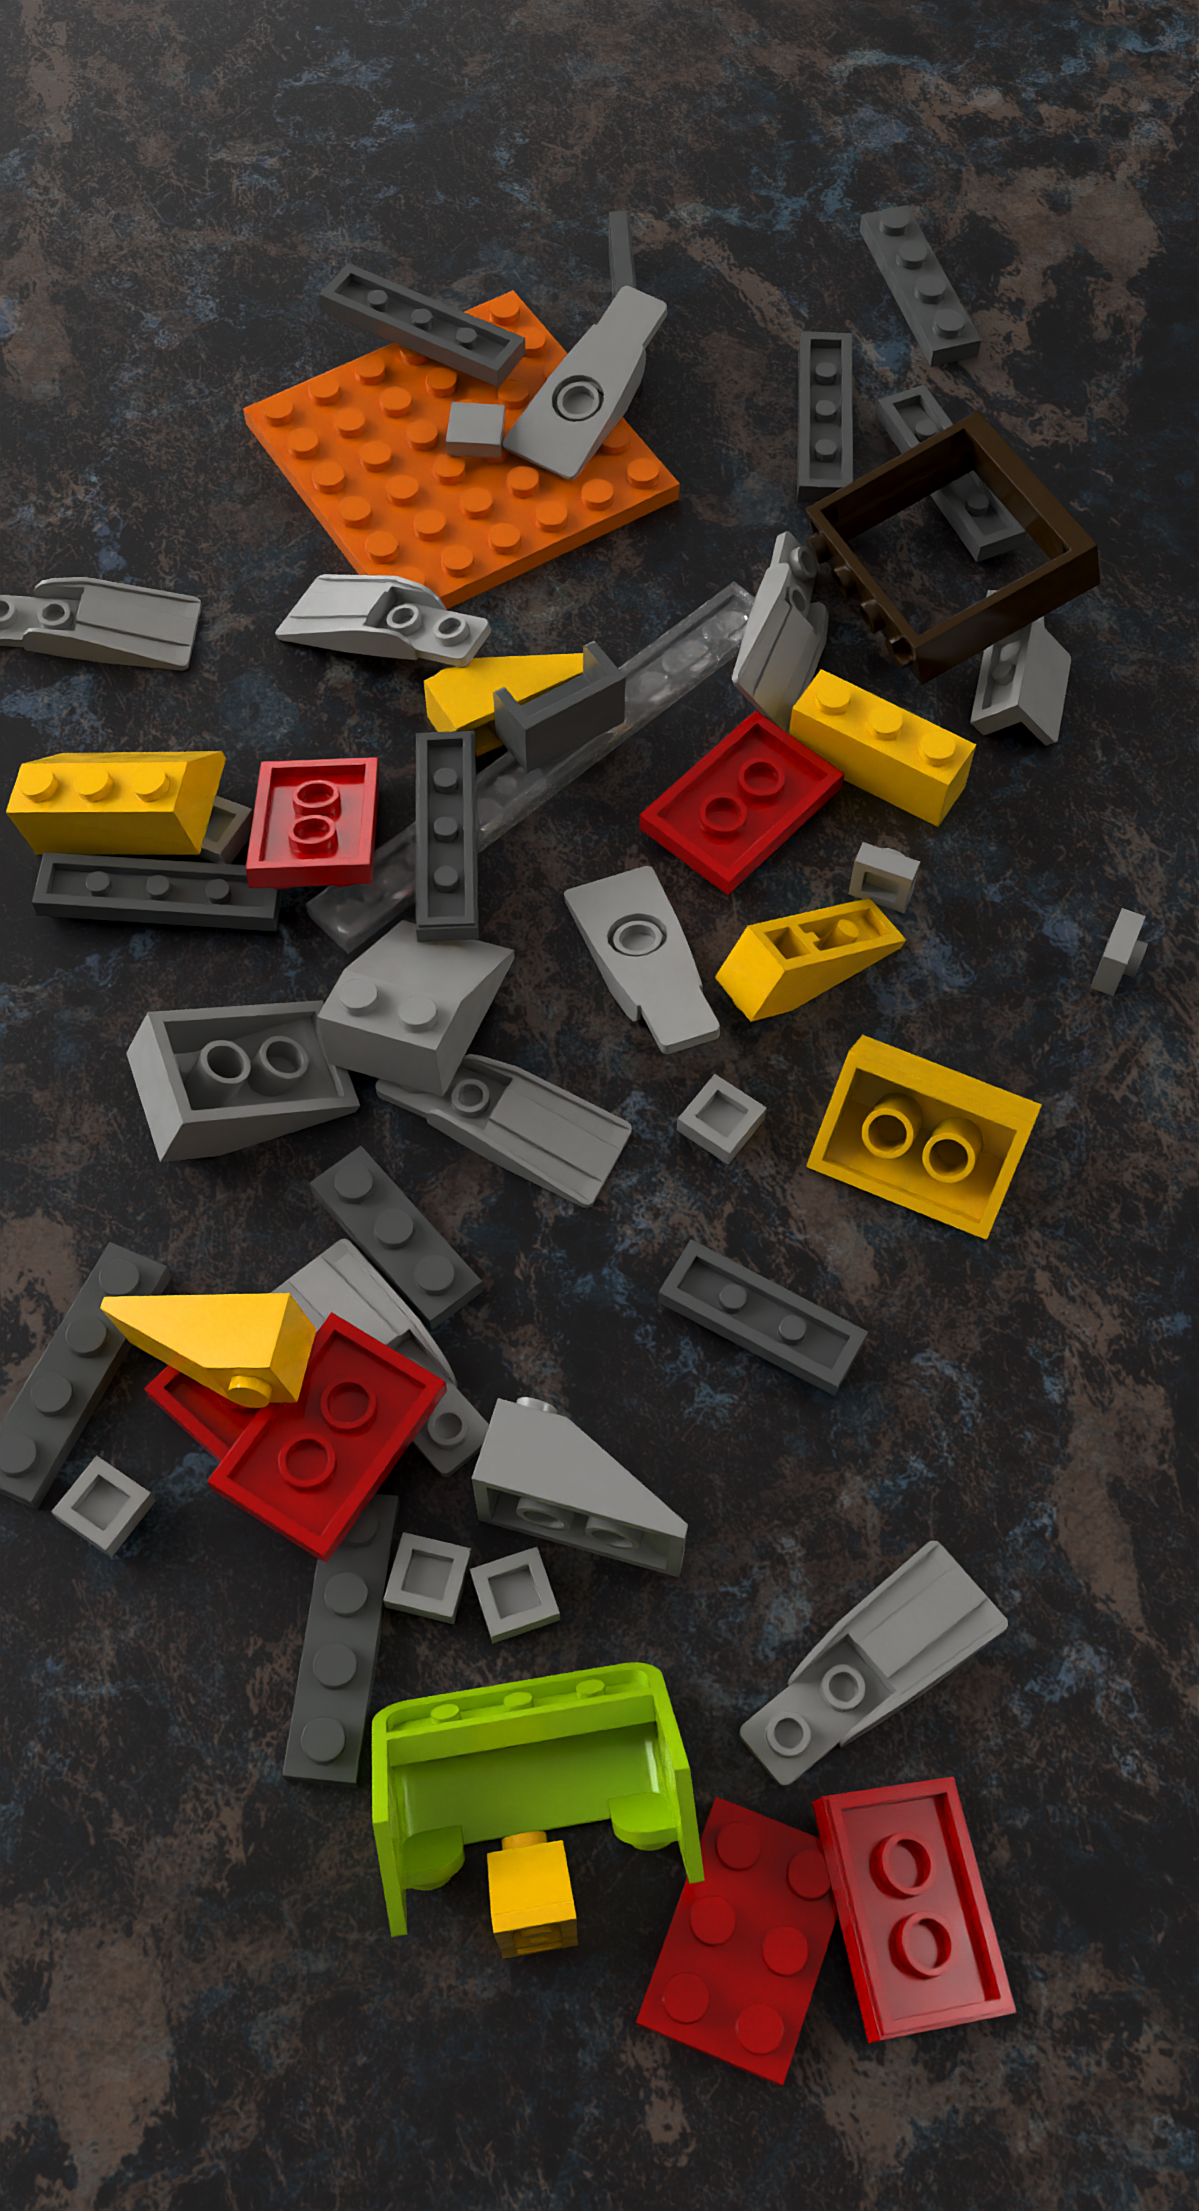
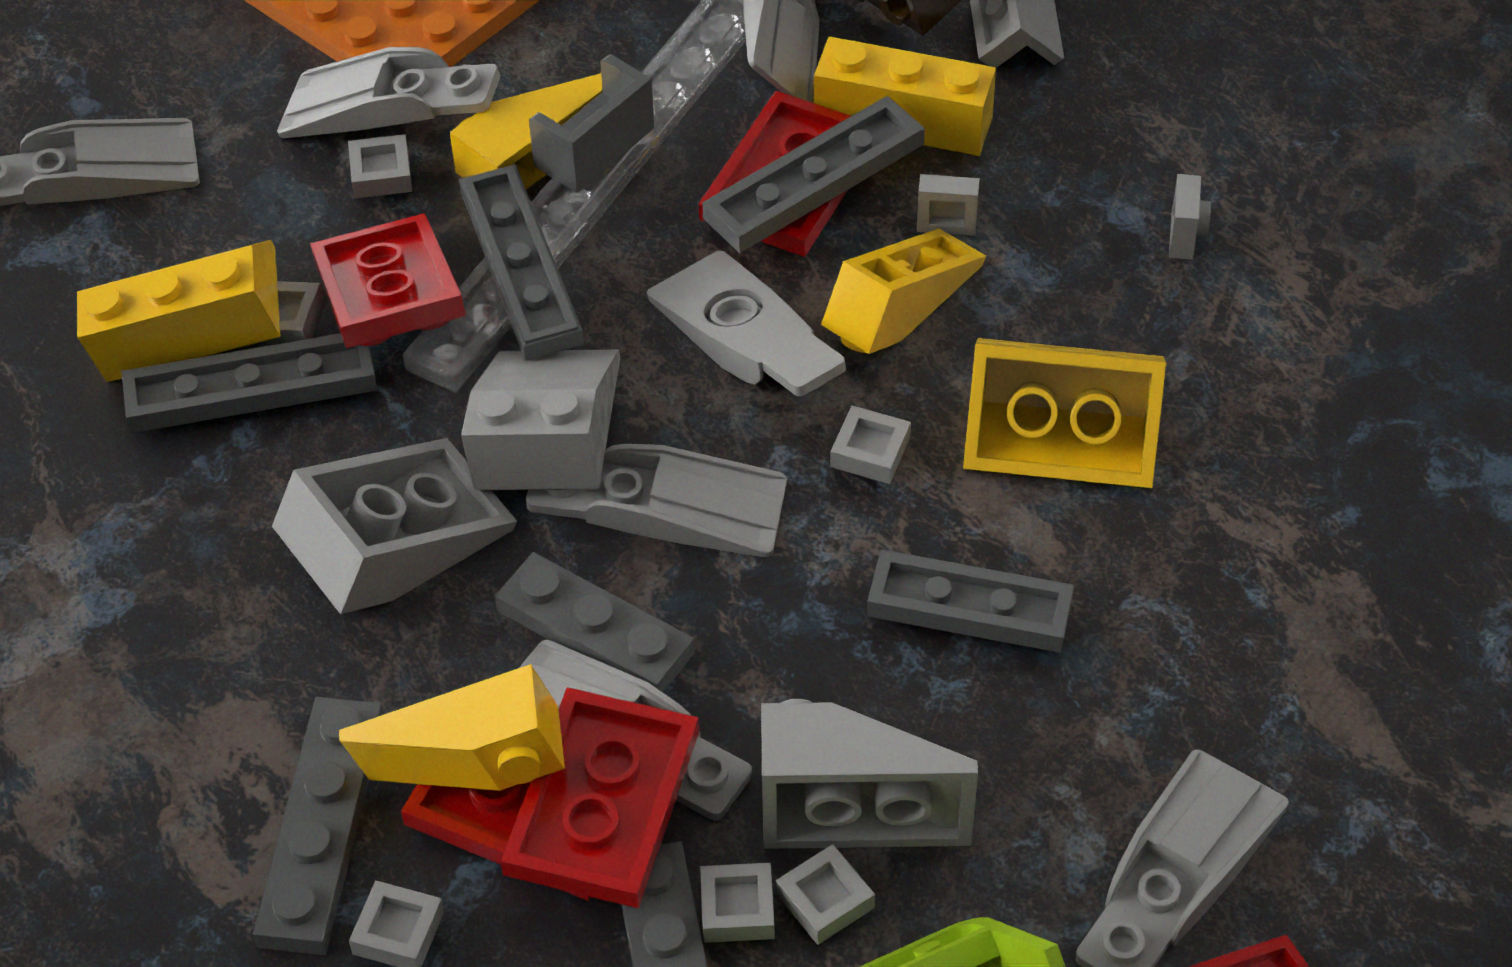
camera: 15 degrees left, 10 degrees down
(354, 695) = (380, 166): none -> light grey plate
(758, 814) = (813, 174): none -> dark grey plate

